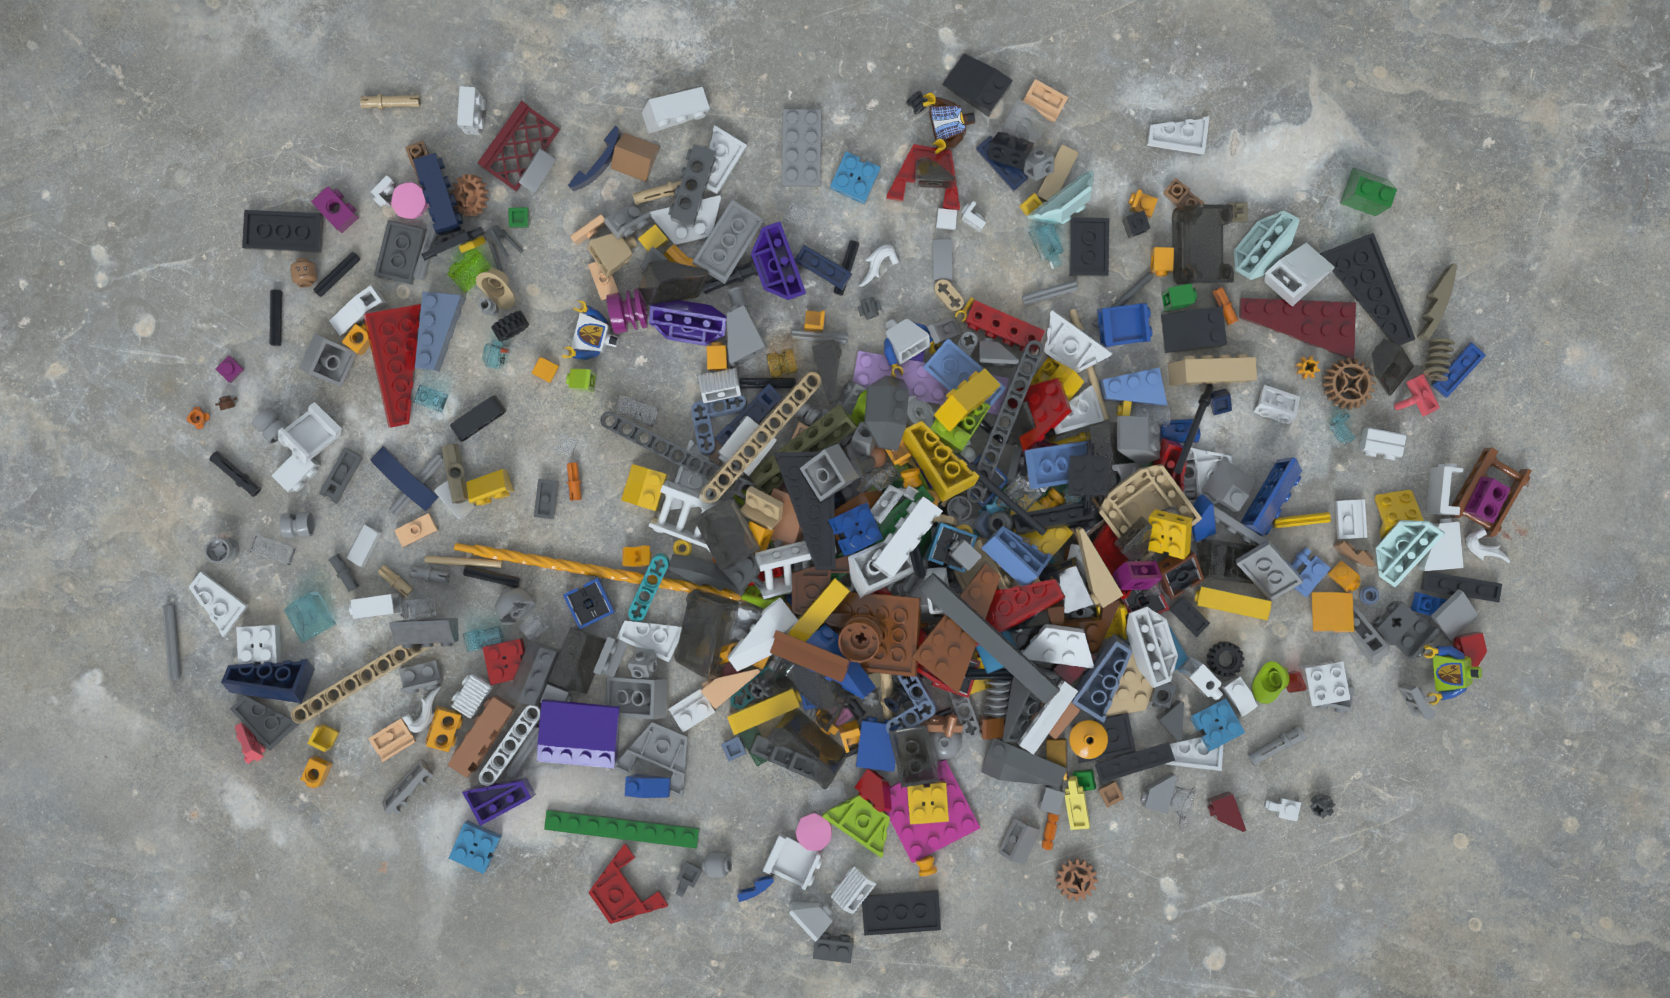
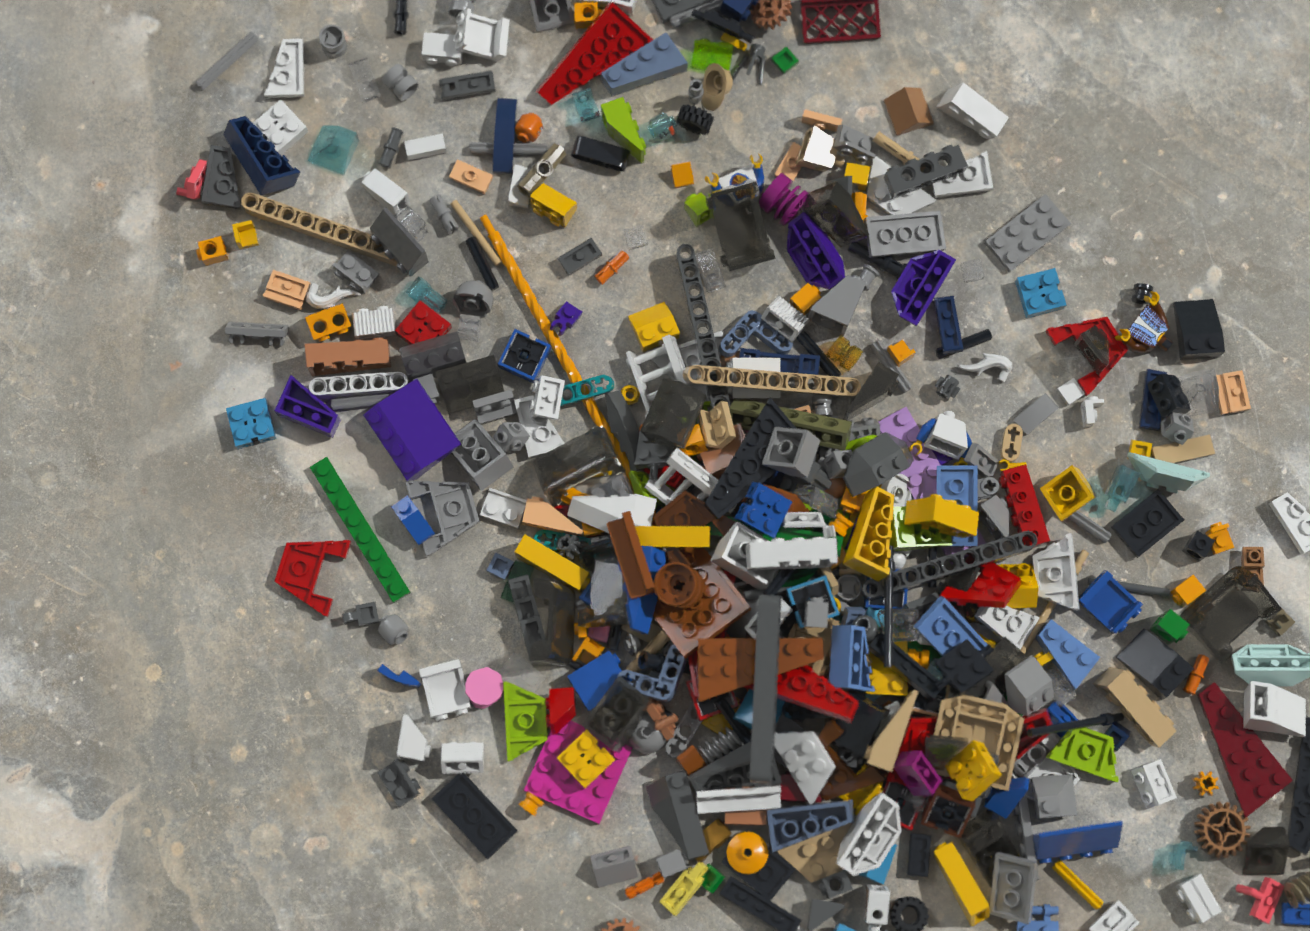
camera: 45 degrees right, 10 degrees down
(395, 581) = (417, 191): tan axle -> none
(413, 456) = (528, 127): none -> orange head
(461, 384) = (621, 127): none -> lime slope
(537, 170) = (834, 44): light grey slope -> none
(580, 179) = (856, 85): dark blue slope -> none
(584, 546) = (566, 316): none -> dark purple plate
(622, 362) = (740, 225): none -> clear smoke windscreen
(636, 556) = (592, 363): light orange bracket -> none
(636, 614) = (547, 397): none -> white bracket
(1021, 286) = (1068, 492): none -> yellow slope
(1110, 794) = (717, 910): medium nougat plate -> none
(1217, 434) = (1087, 752): none -> lime wing

